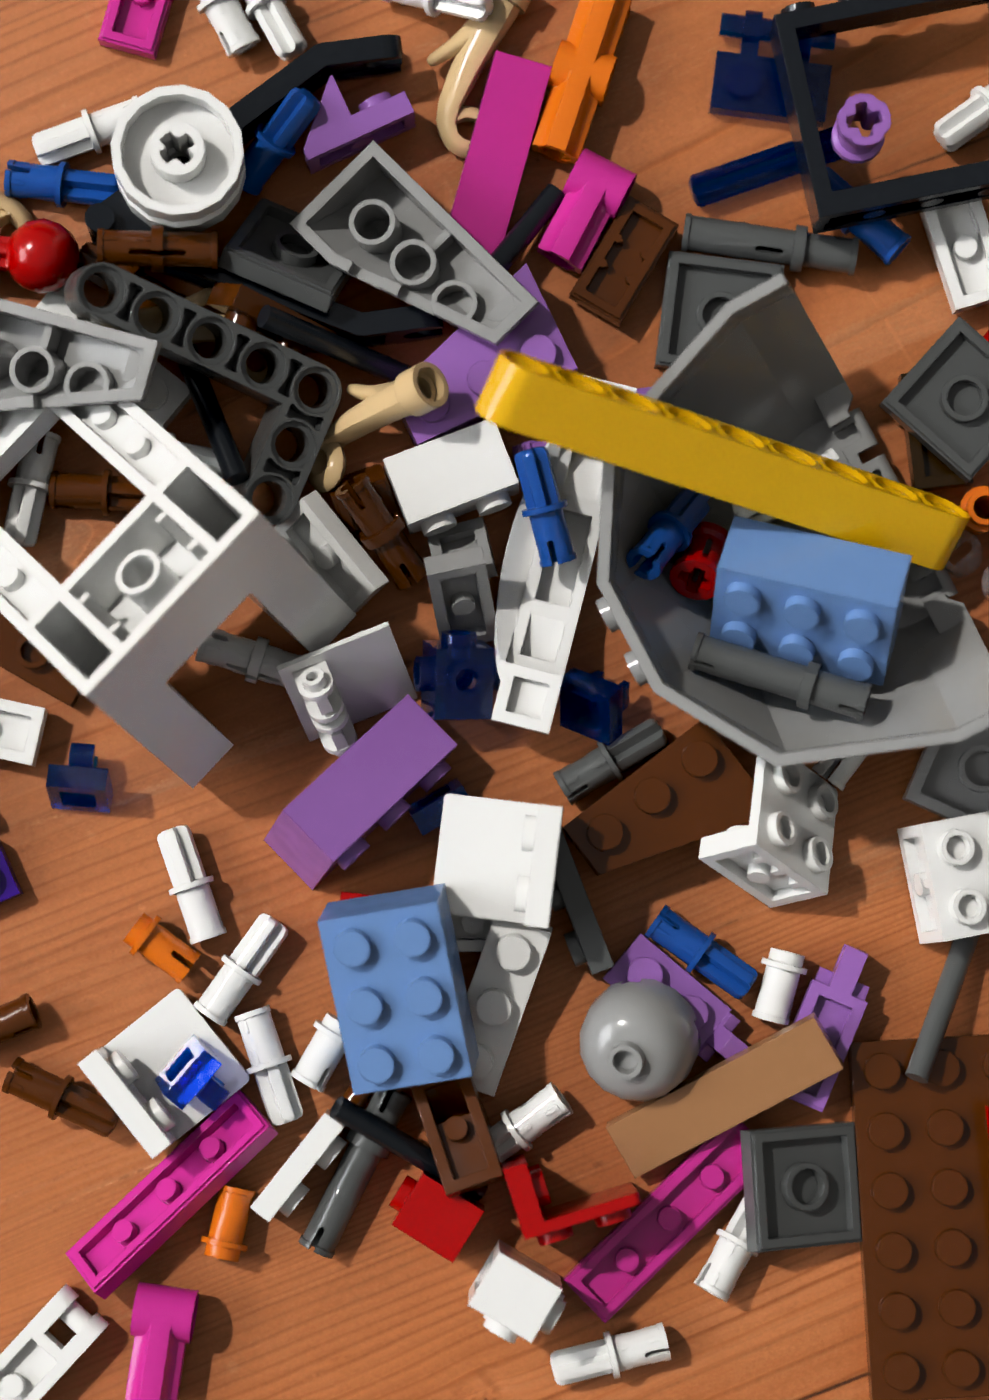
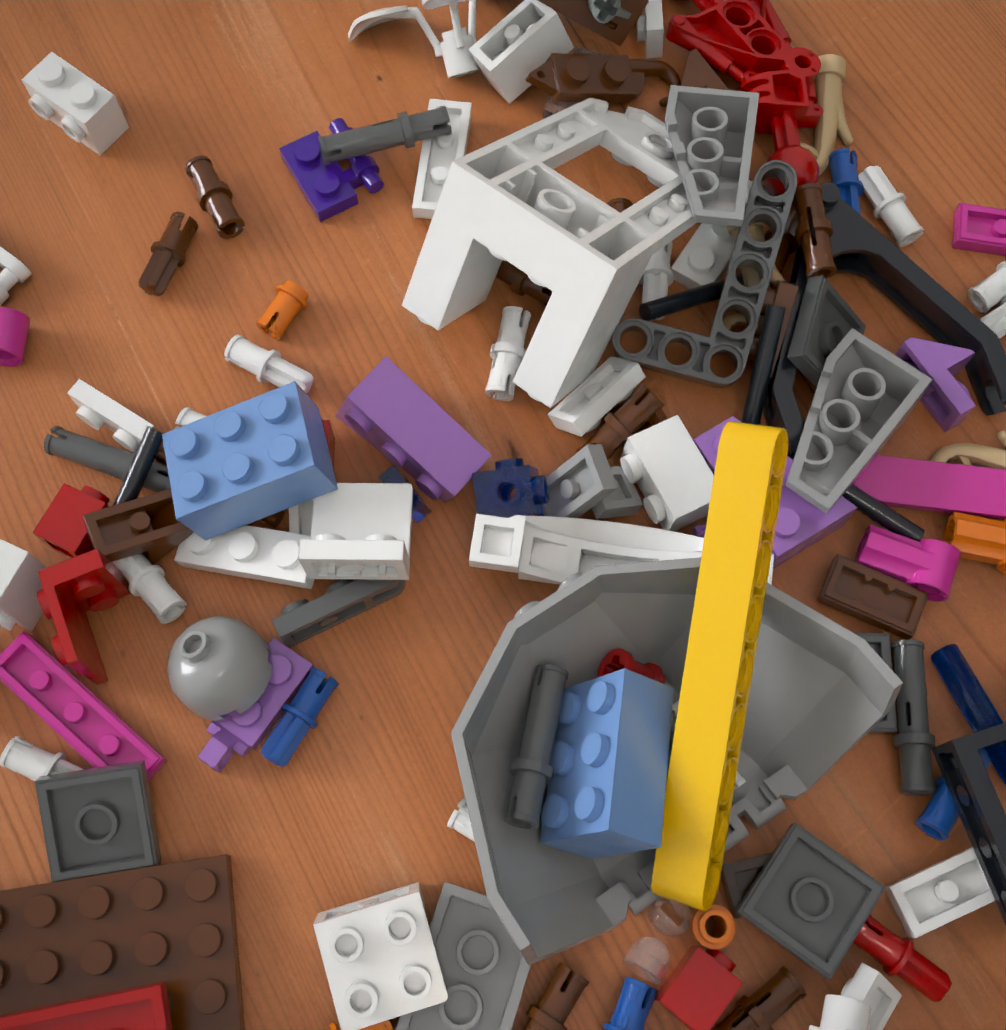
camera: 85 degrees right, 15 degrees down
(30, 492) = (610, 188): white axle -> none
(81, 783) = (401, 241): clear blue tile -> none
(131, 1061) = (182, 314): white bracket -> none
(170, 125) = (888, 232): white wheel -> none
(171, 1194) = (96, 334): dark pink tile -> none
(190, 884) = (331, 325): white axle -> none
(193, 1075) = (180, 332): clear blue tile -> none
(229, 1224) = (61, 374): orange pin -> none
(269, 1066) = (195, 393): white axle -> none
(277, 137) = (913, 321): blue axle -> none
(346, 685) = (496, 408): white hinge -> none
(412, 393) = (711, 404): tan plant -> none
(544, 506) = (659, 540): blue axle -> none
(593, 705) = (498, 602): clear blue tile -> none
(609, 762) = (454, 625): dark grey axle -> none
(668, 533) = (649, 640): blue axle -> none
(668, 802) = (420, 669): reddish brown wedge -> none
(725, 1095) = (176, 748): medium nougat tile -> none
(779, 985) = (274, 786): white pin -> none
(788, 840) = (401, 769): white bracket -> none
(839, 1007) = (235, 828): medium lavender hinge -> none
(941, 1009) = (255, 933): dark grey bar -> none

